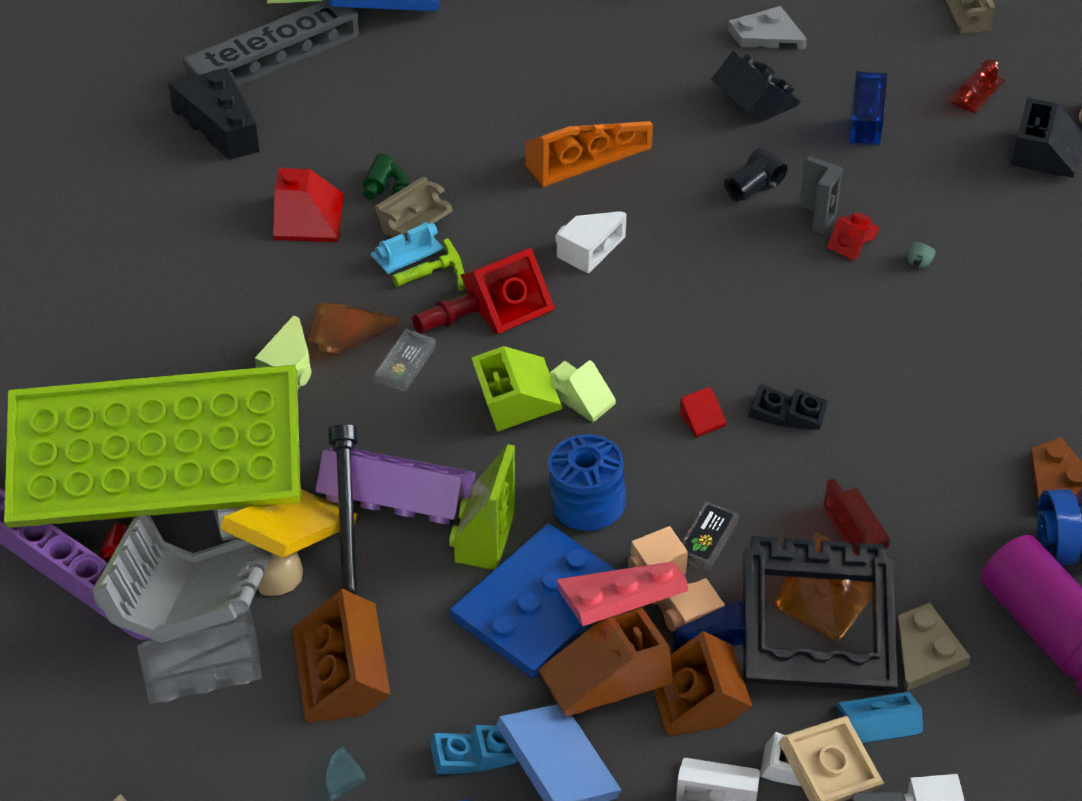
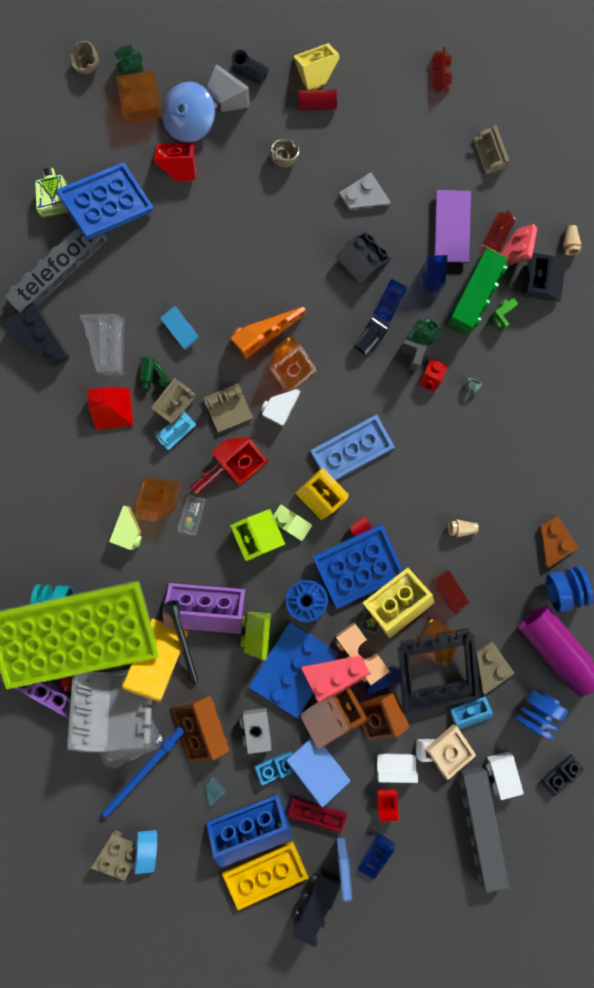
camera: 15 degrees left, 40 degrees up
(271, 673) = (166, 746): none -> blue bar
(325, 126) = (106, 342): none -> clear wedge
(447, 132) = (180, 327): none -> dark azure slope
(451, 259) = (190, 441): lime piece -> none
(453, 657) = (259, 719): none -> light grey brick
(500, 232) = (228, 407): none -> dark tan hinge
(620, 187) = (291, 364): none -> clear orange slope
(639, 346) = (322, 494): none -> yellow slope
(690, 459) = (358, 565): none -> blue plate
(702, 311) = (353, 448): none -> medium blue tile
(759, 506) = (399, 602): none -> light yellow slope
(795, 411) = (407, 517): black slope -> none
(804, 125) = (403, 288): none -> clear blue slope
(853, 177) = (424, 332): none -> clear green brick
(885, 432) = (462, 528): none -> tan cone
(908, 70) = (453, 225): none -> medium lavender piece
(932, 137) = (477, 291): none -> green brick
(978, 172) = (498, 316): none -> bright green bracket
(1009, 99) = (520, 245): none -> coral wing
(1019, 711) = (542, 713): none -> blue wheel

